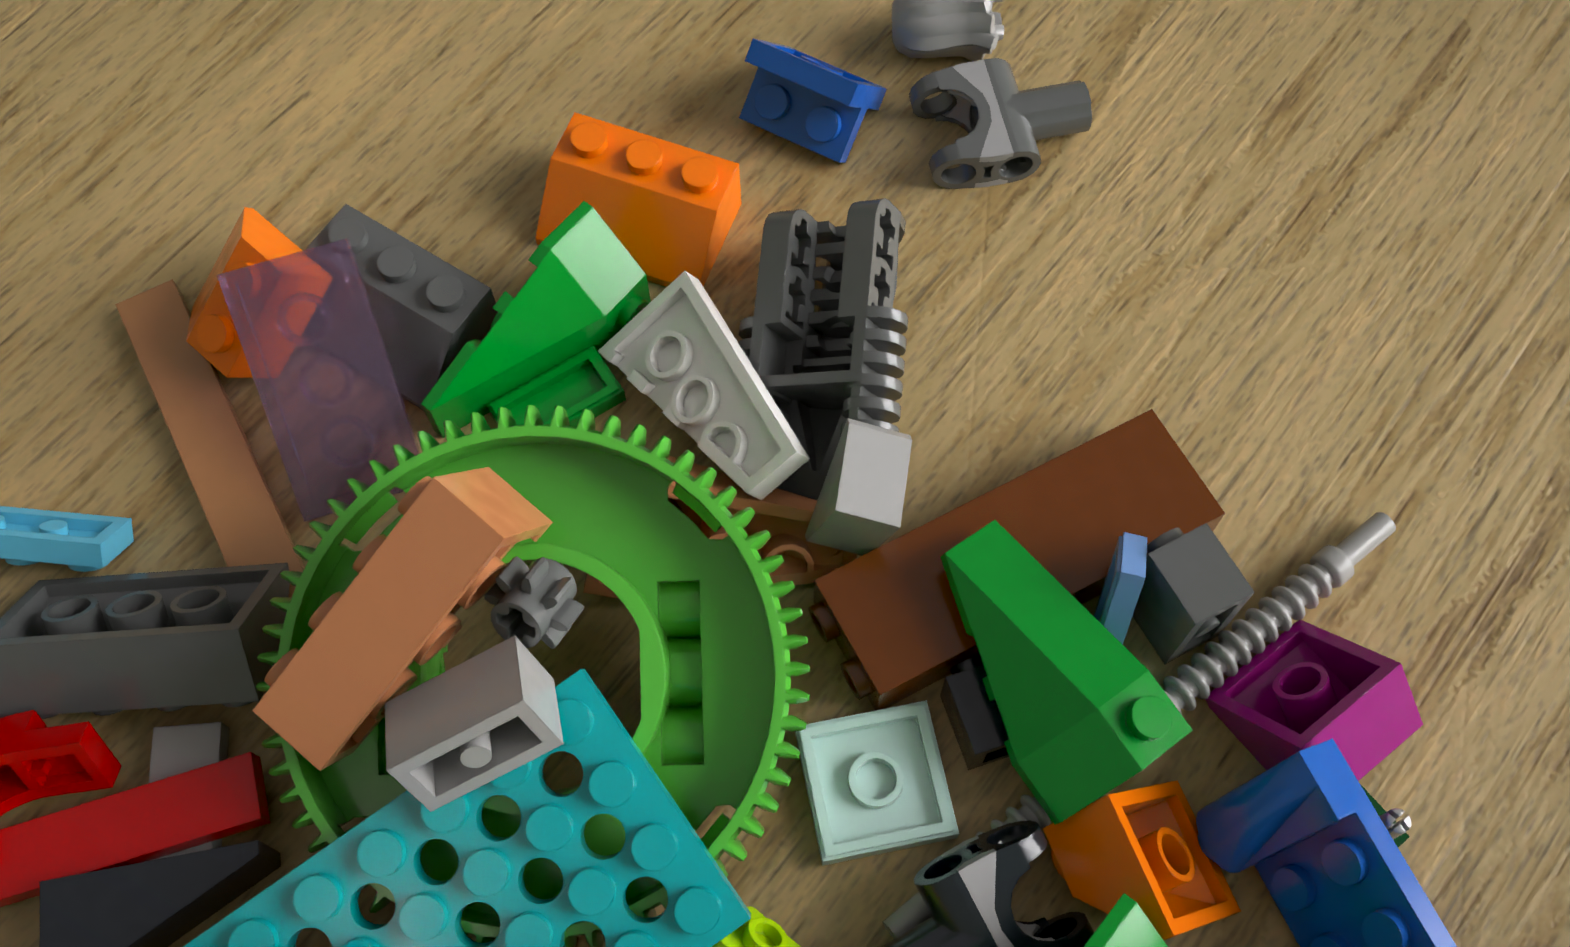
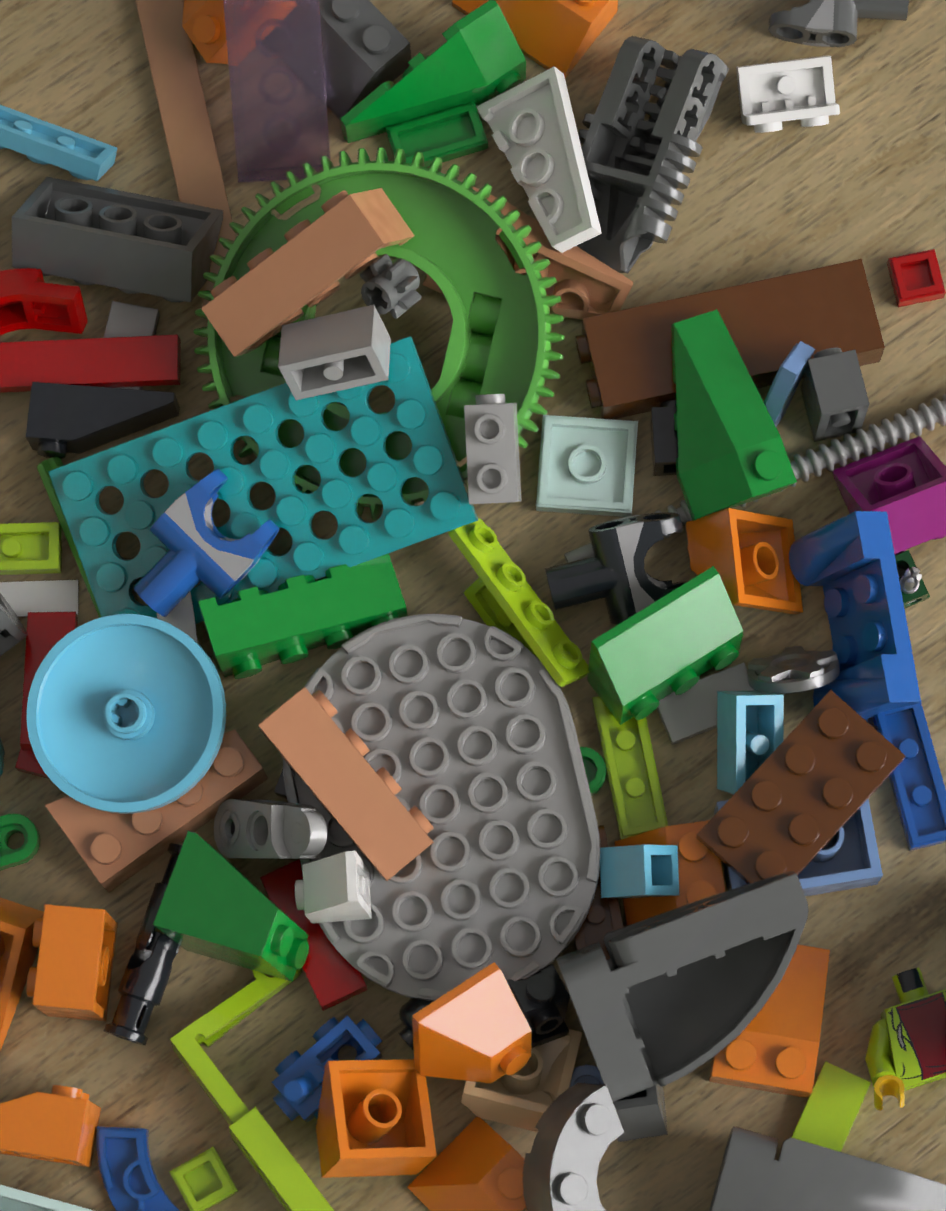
camera: 20 degrees right, 10 degrees up
(747, 809) = (492, 450): none -> light grey brick
(862, 489) = (632, 263): light grey slope -> none
(978, 238) = (786, 93): none -> white bracket
(1216, 420) = (916, 278): none -> red tile

